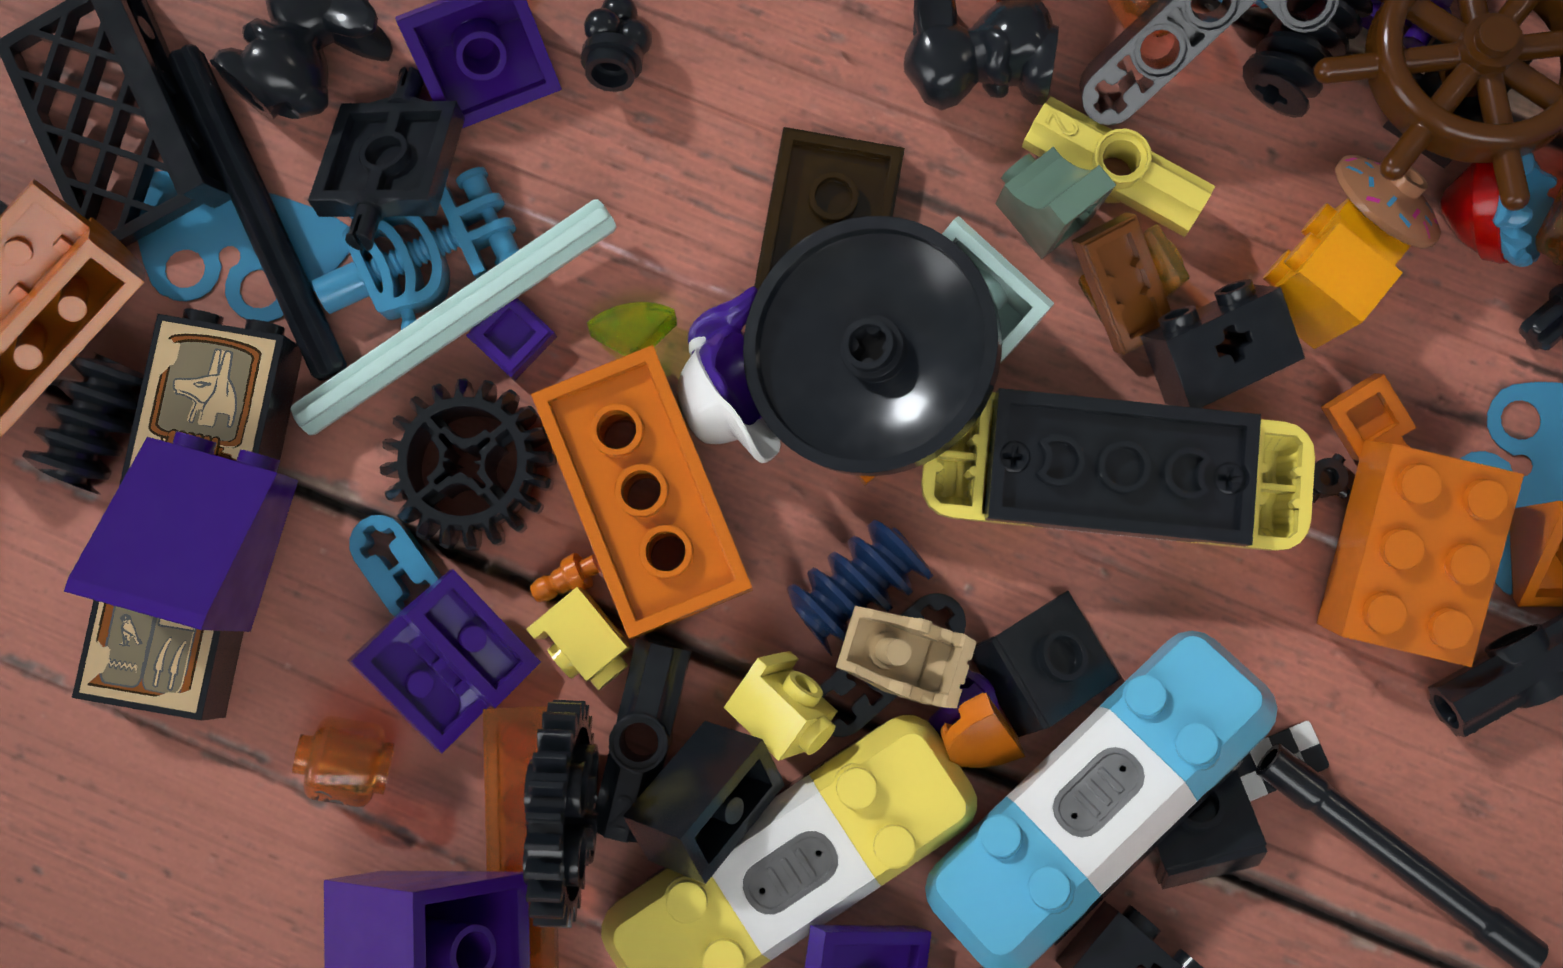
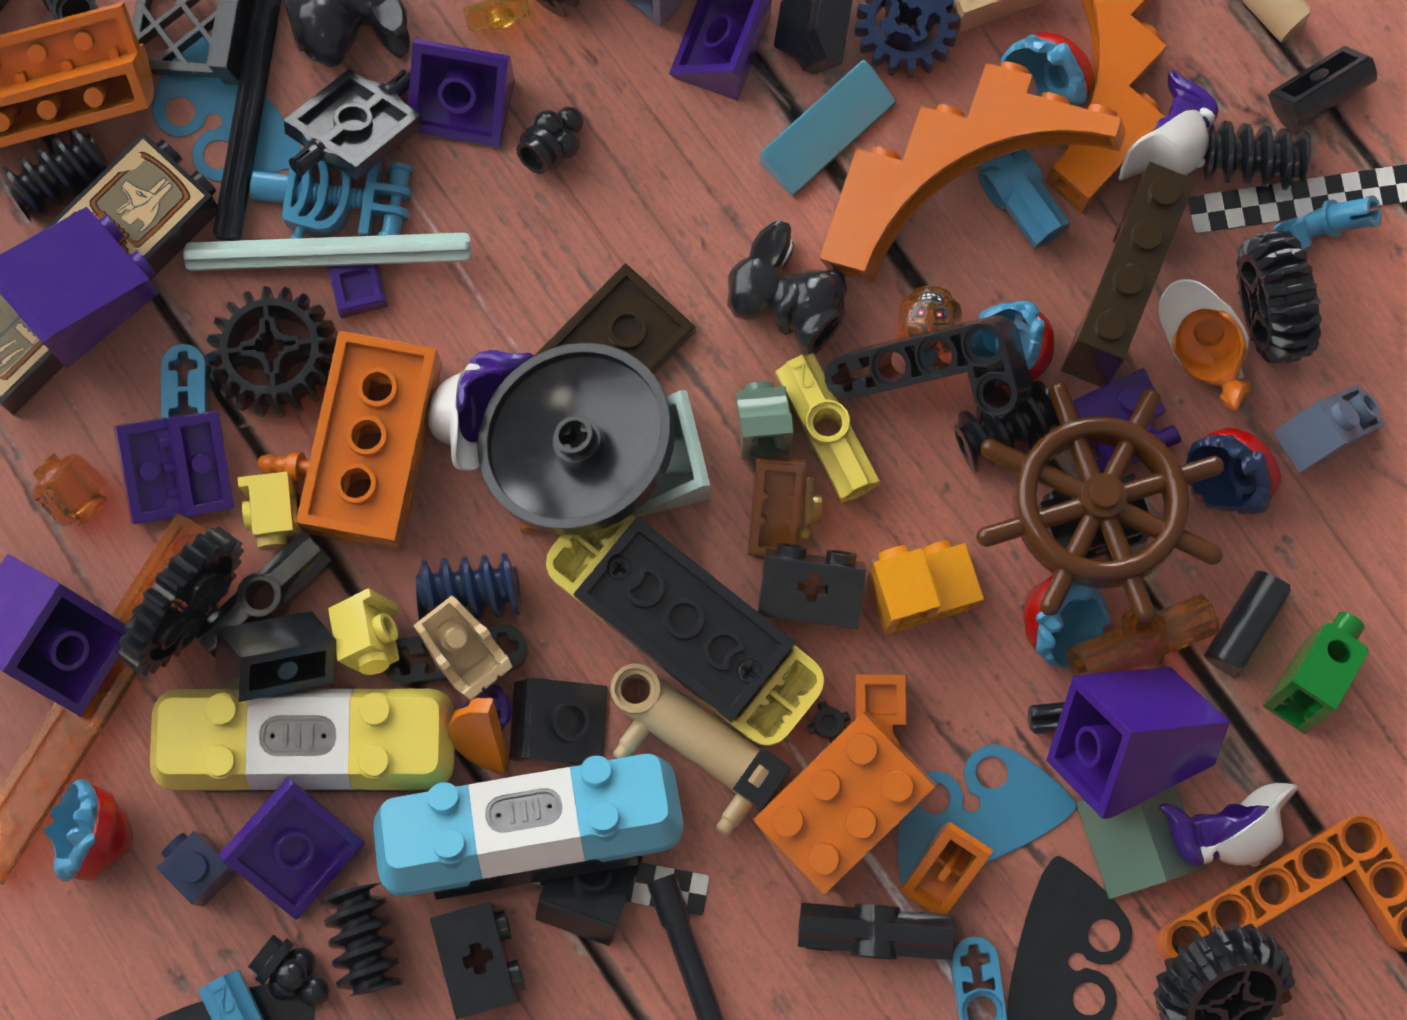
camera: 35 degrees right, 5 degrees down
(632, 326) = (439, 330): clear neon green tile -> none
(1215, 582) = (702, 739): none -> tan piece
(1391, 205) = (989, 573): nougat dish -> none

